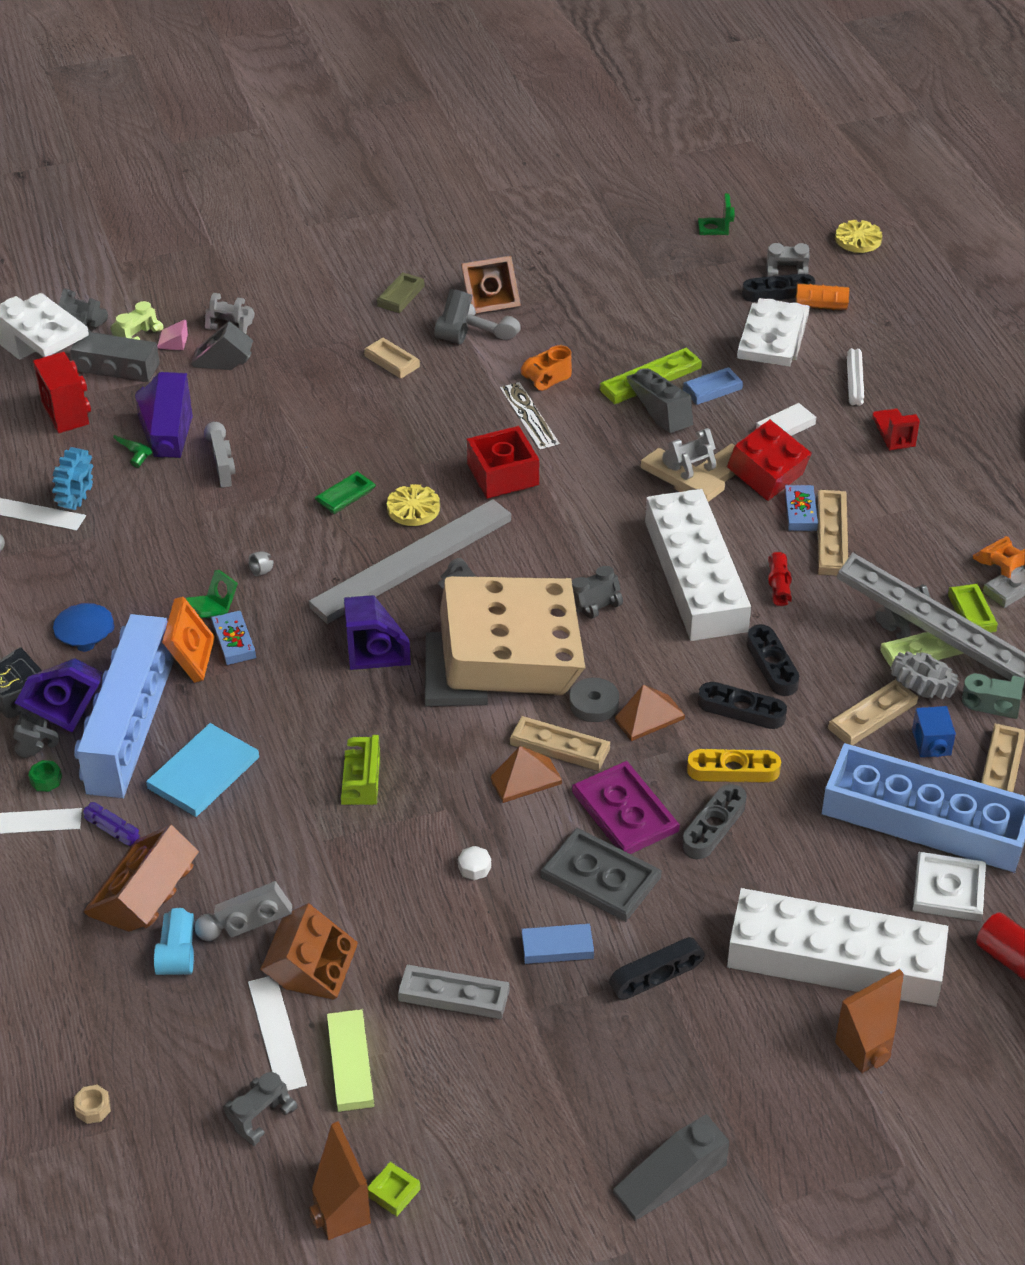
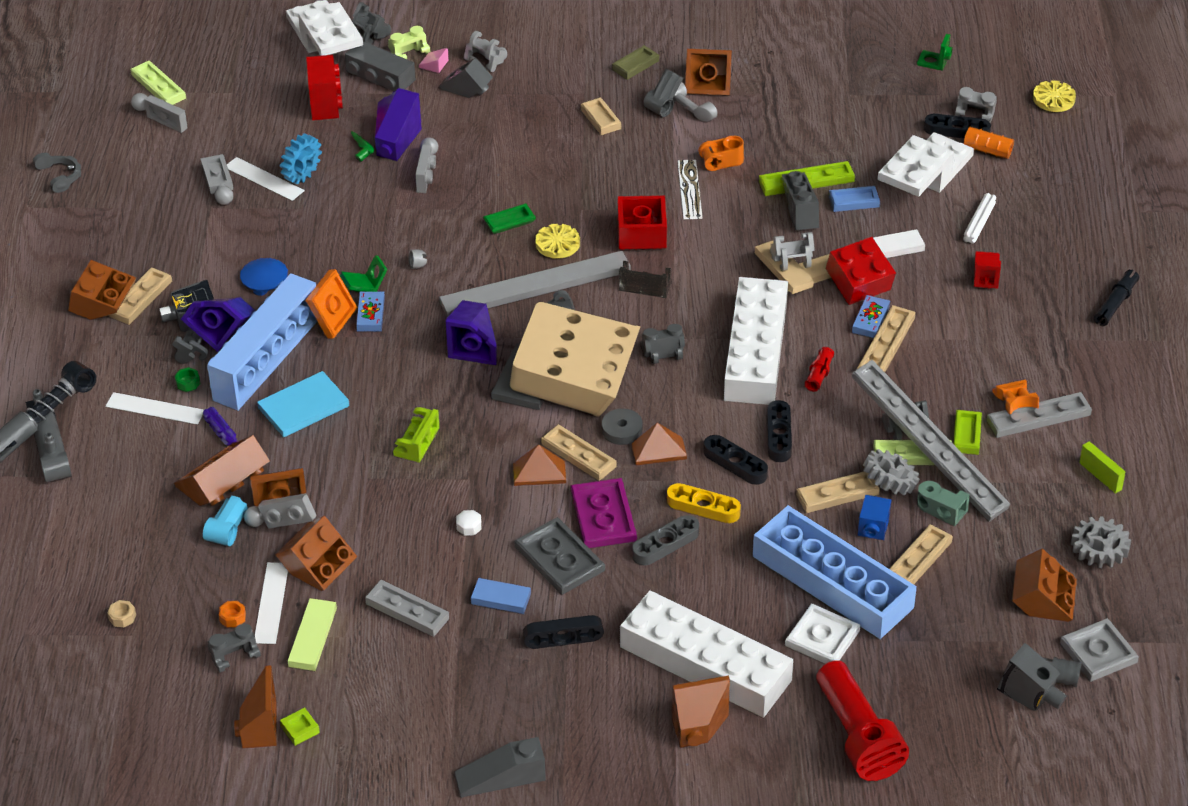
camera: 20 degrees right, 0 degrees up
(230, 878) = (277, 485): none -> dark orange slope
(237, 1062) = (232, 613): none -> orange tile
(536, 528) = (644, 282): none -> clear smoke hinge

